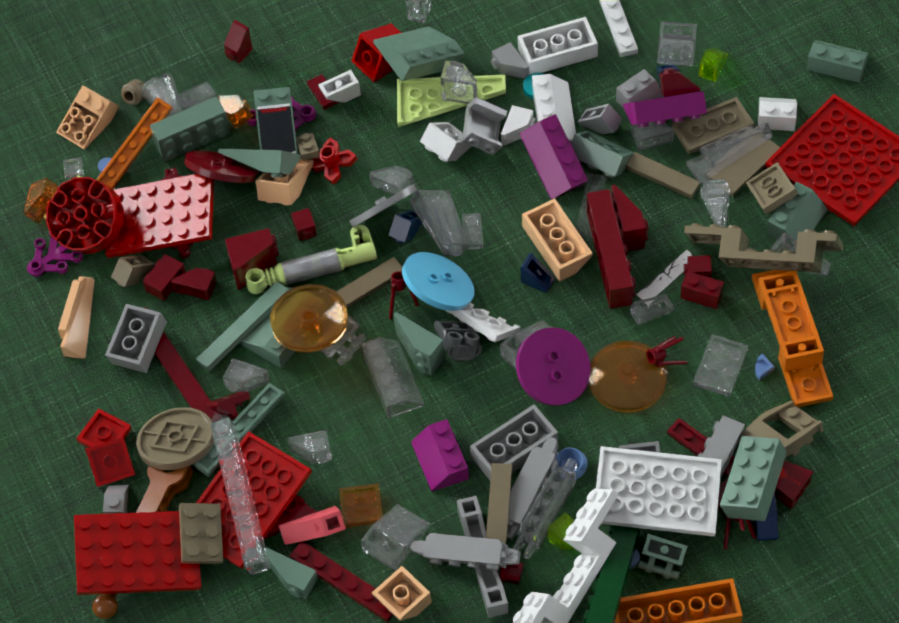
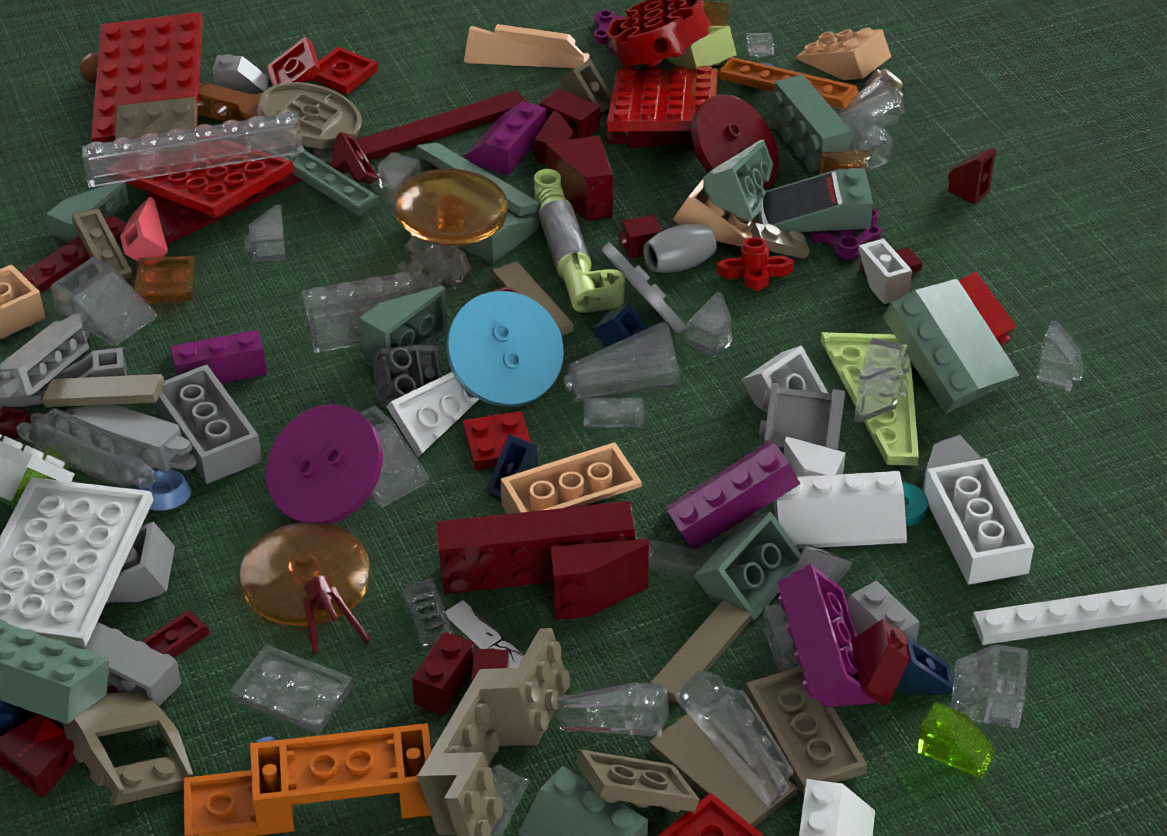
camera: 90 degrees right, 15 degrees down
(136, 338) = (468, 82): light grey brick -> none
(193, 314) = (508, 139): none -> magenta slope
(320, 199) = (679, 248): none -> light grey piece
(334, 548) = (100, 240): none -> dark tan plate
(503, 289) = (488, 435): none -> red plate

